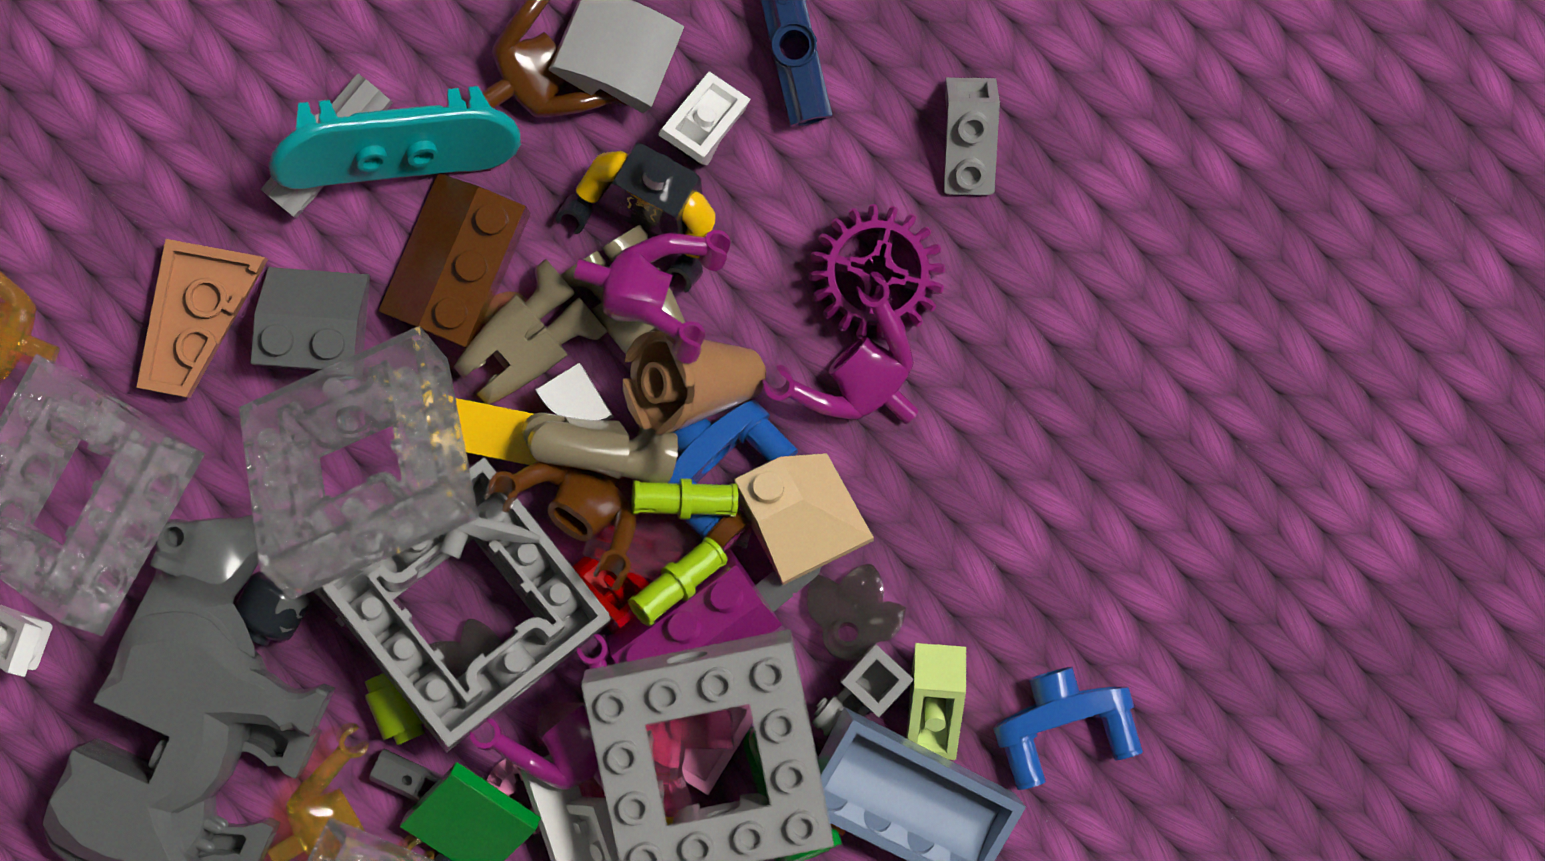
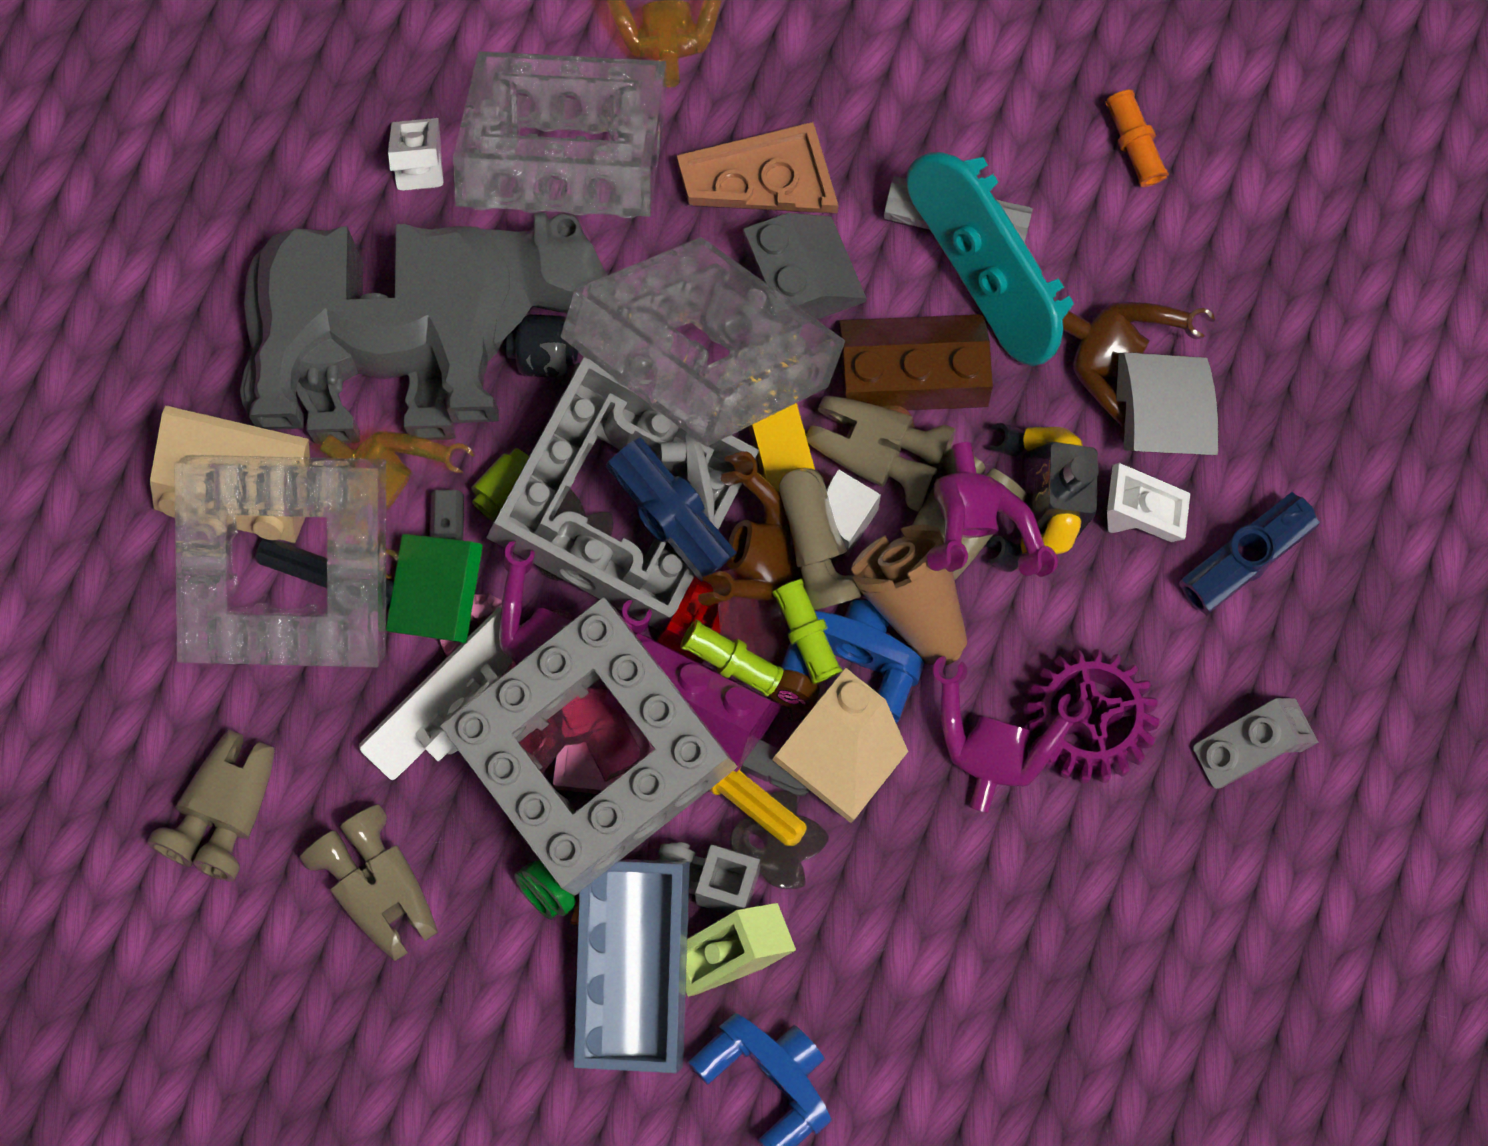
camera: 65 degrees right, 15 degrees down
(511, 572) = (670, 508): none -> dark blue piece
(826, 613) = (761, 807): none -> yellow axle

